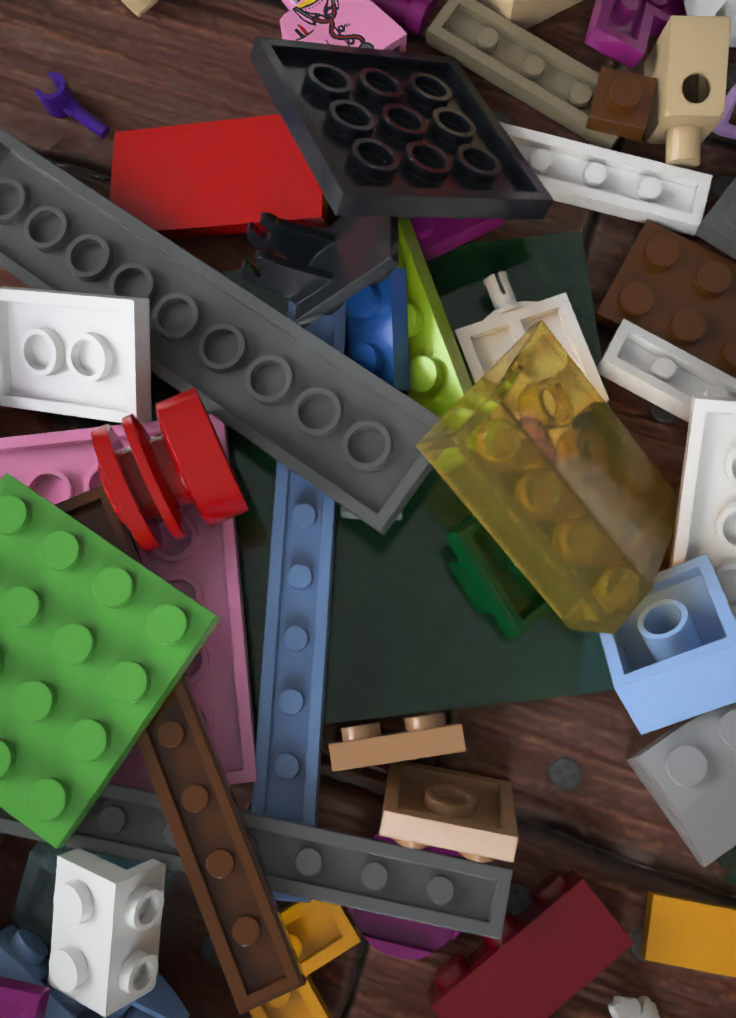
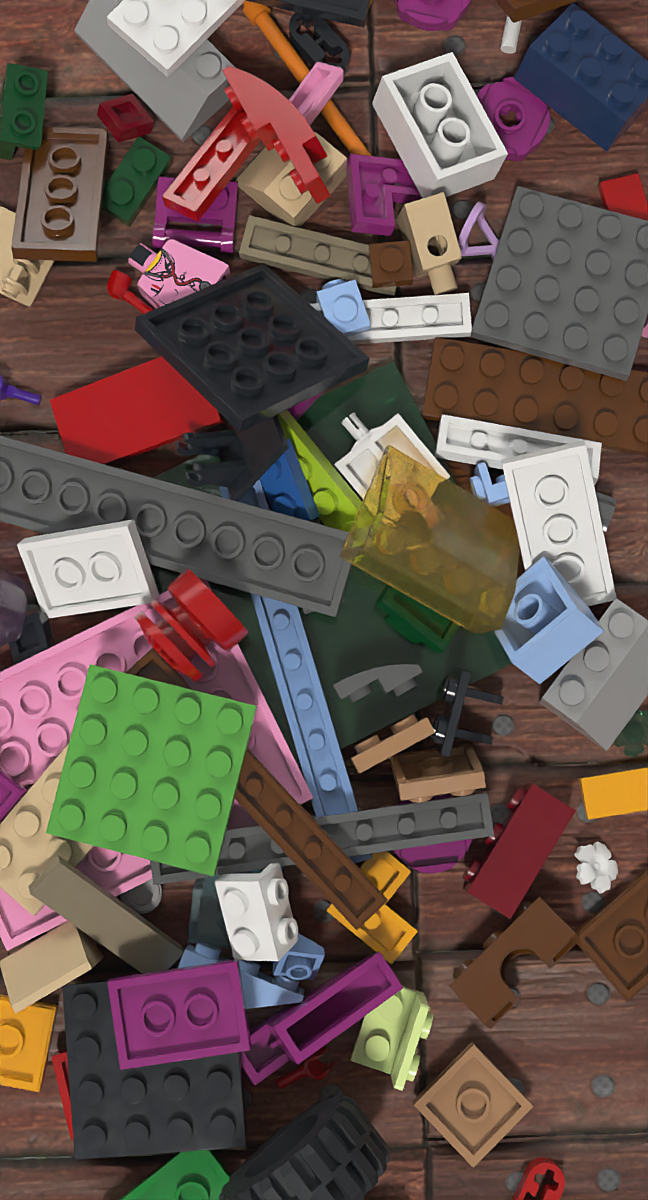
camera: 25 degrees left, 5 degrees up
(259, 22) = (118, 287): none -> red hand
(428, 647) = (392, 677): none -> dark grey slope
(484, 748) = (445, 726): none -> black plate
(541, 135) = (343, 306): none -> light blue bracket
(662, 447) = (482, 487): none -> light blue bracket

